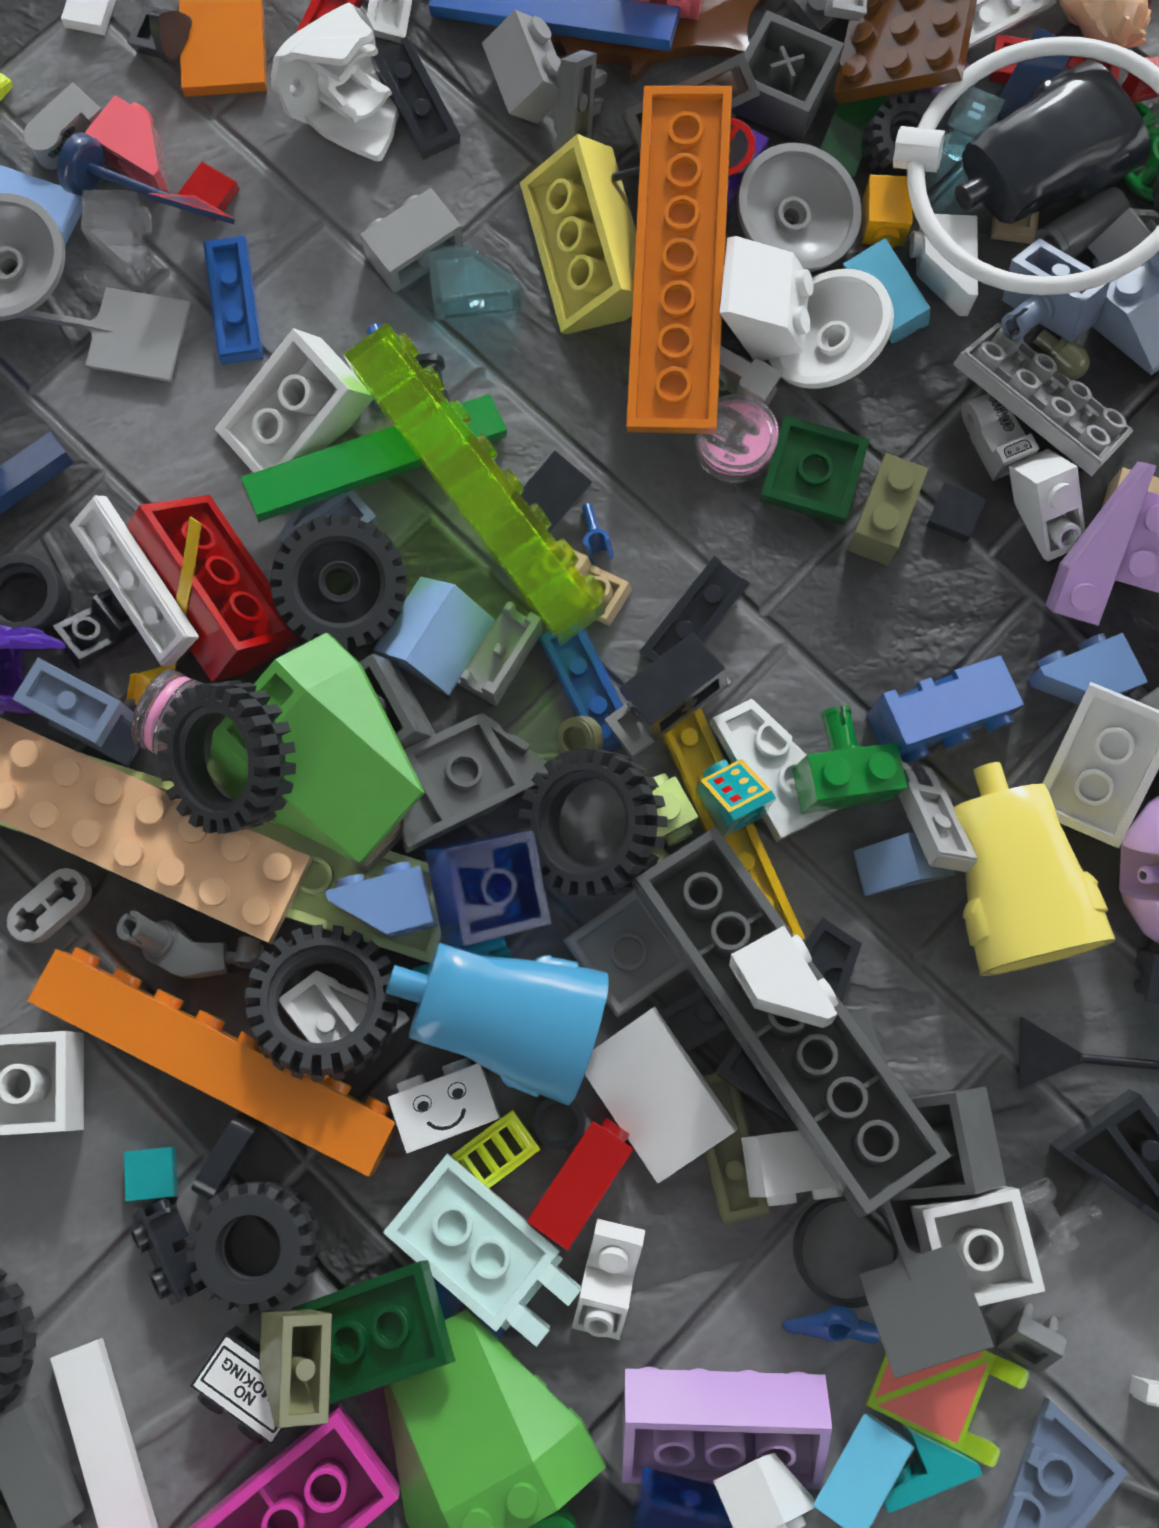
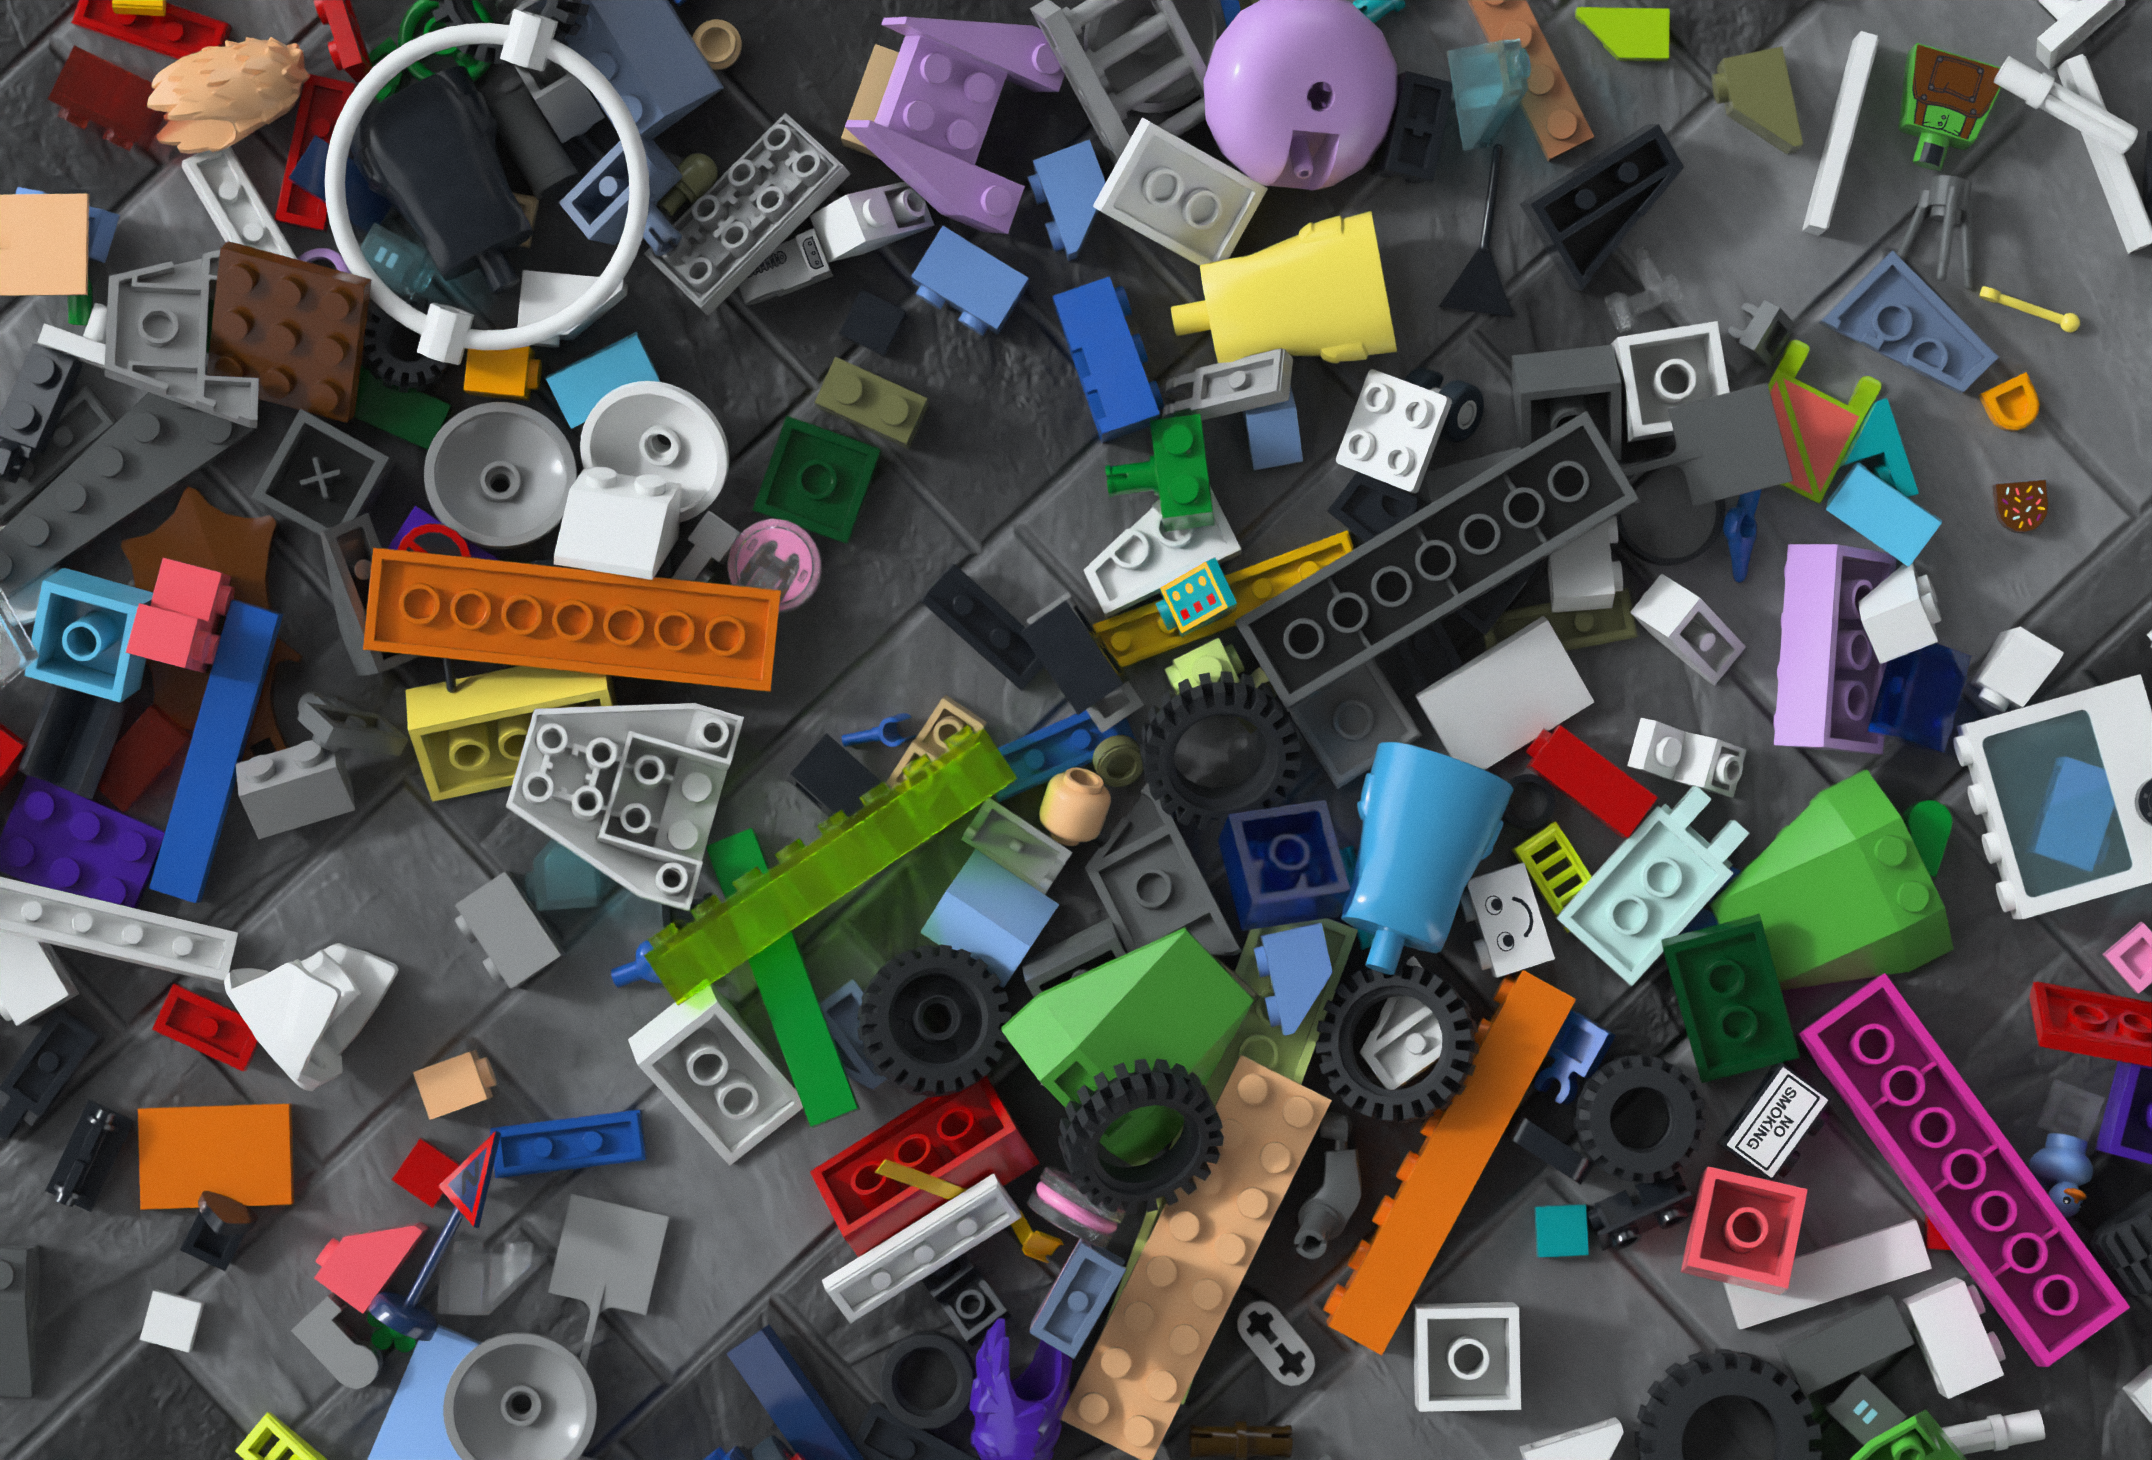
camera: 85 degrees left, 10 degrees up
(139, 1359) = (1744, 1230): none -> coral brick
(281, 202) = (455, 1083): none -> light nougat brick
(296, 1365) = (1755, 1071): olive slope -> none
(320, 1181) = (1576, 1052): none -> blue plate
(416, 98) = (319, 921): black hinge -> none
(532, 317) = (629, 789): none -> white wedge
(536, 700) = (1075, 806): none -> light nougat head
(734, 1275) = (1688, 628): none -> white slope
(781, 982) = (1407, 567): white slope -> none
(914, 981) = (1401, 423): none -> white plate
(1003, 588) = (969, 282): none -> medium blue brick

